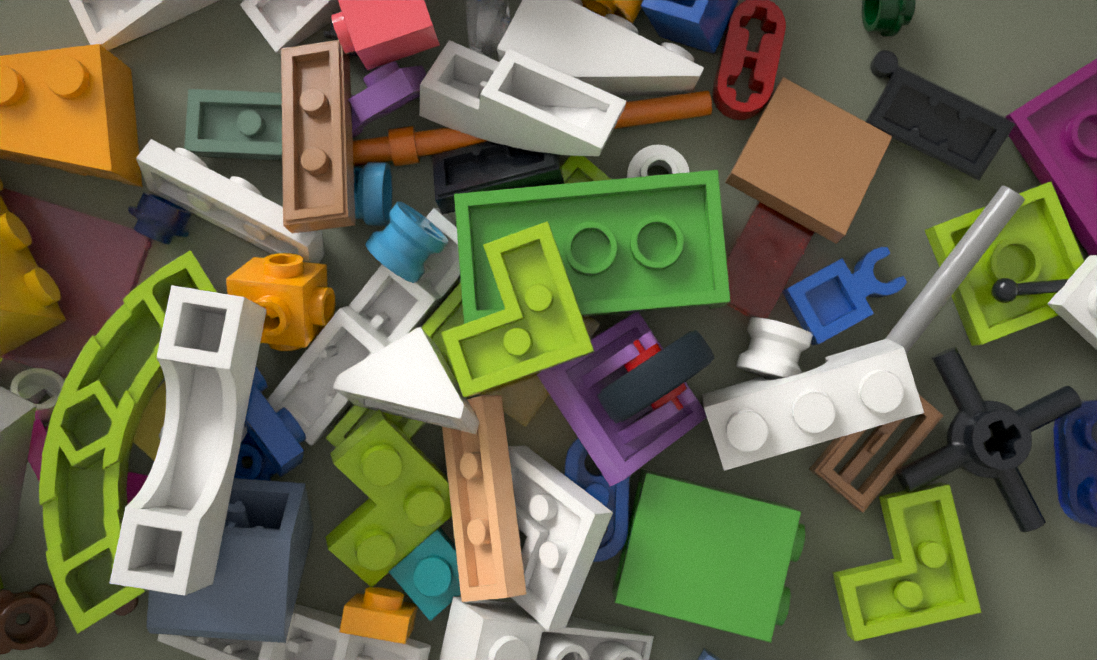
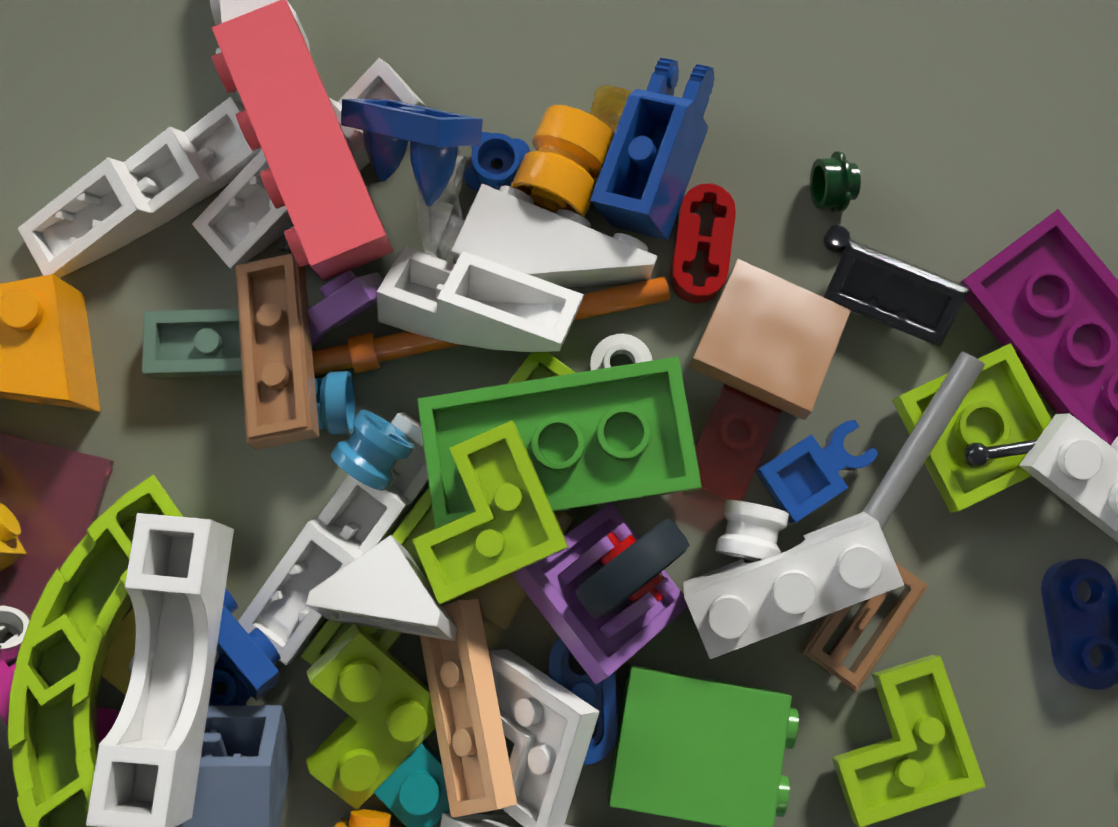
camera: 10 degrees left, 5 degrees down
(159, 218) = (120, 443): clear blue plate -> none
(224, 201) = (188, 423): white plate -> none
(293, 295) = (258, 510): light orange brick -> none
(489, 168) = (451, 370): black plate -> none
(1006, 447) = (994, 613): black bar -> none

